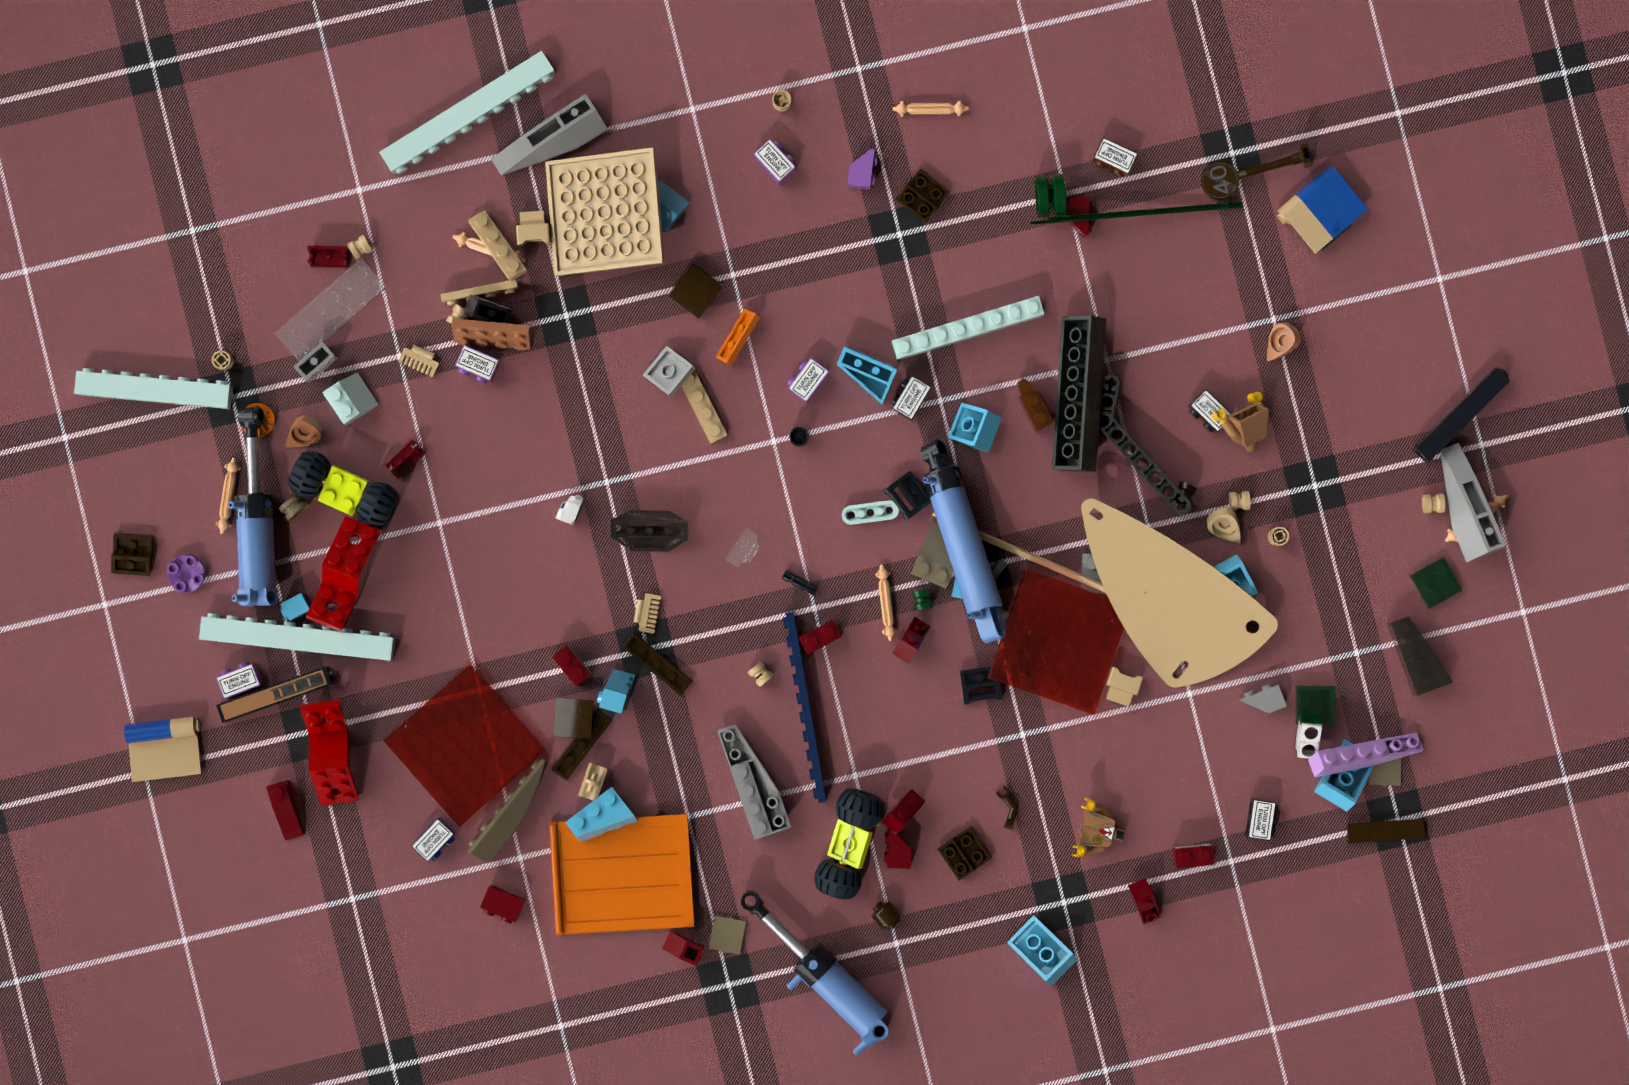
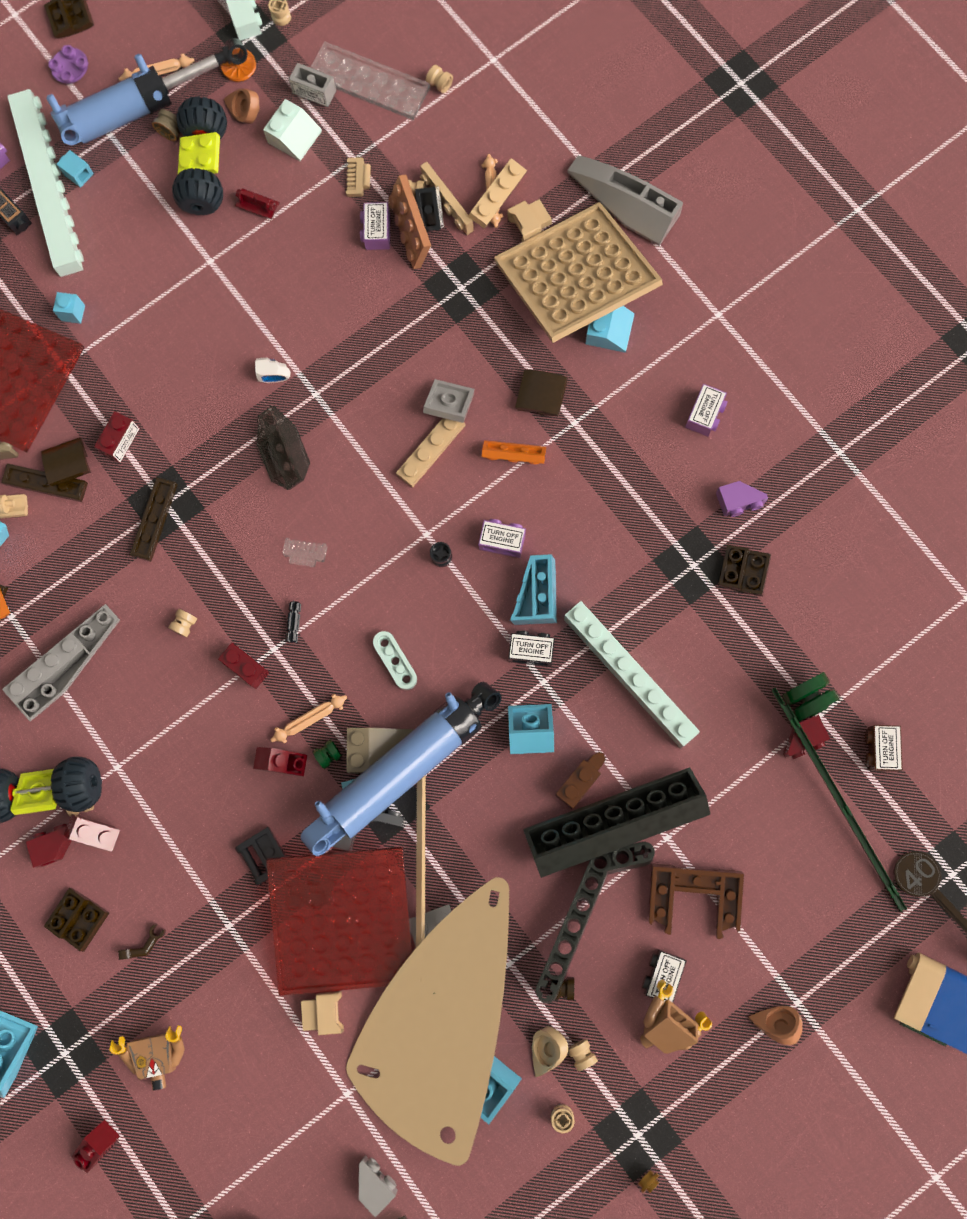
camera: 80 degrees right, 10 degrees down
(328, 256) = (417, 55): dark red hinge -> none
(343, 573) = (123, 181): red bracket -> none
(431, 662) = (69, 307): none -> medium azure brick
(467, 113) = (612, 116): light aqua brick -> none
(616, 691) = (101, 487): medium azure wedge -> none
(642, 612) = (199, 483): tan piece -> none
(781, 97) = (773, 387): tan wheel -> none
(805, 716) = (158, 687): dark blue plate -> none
(912, 491) = (434, 694): black plate -> none
(930, 108) = (837, 538): light nougat wheel -> none
(1139, 373) = (723, 883): none -> reddish brown wedge
(1193, 856) = (165, 1181): dark red brick -> none
(1350, 492) = (649, 1182): none -> pearl gold plate

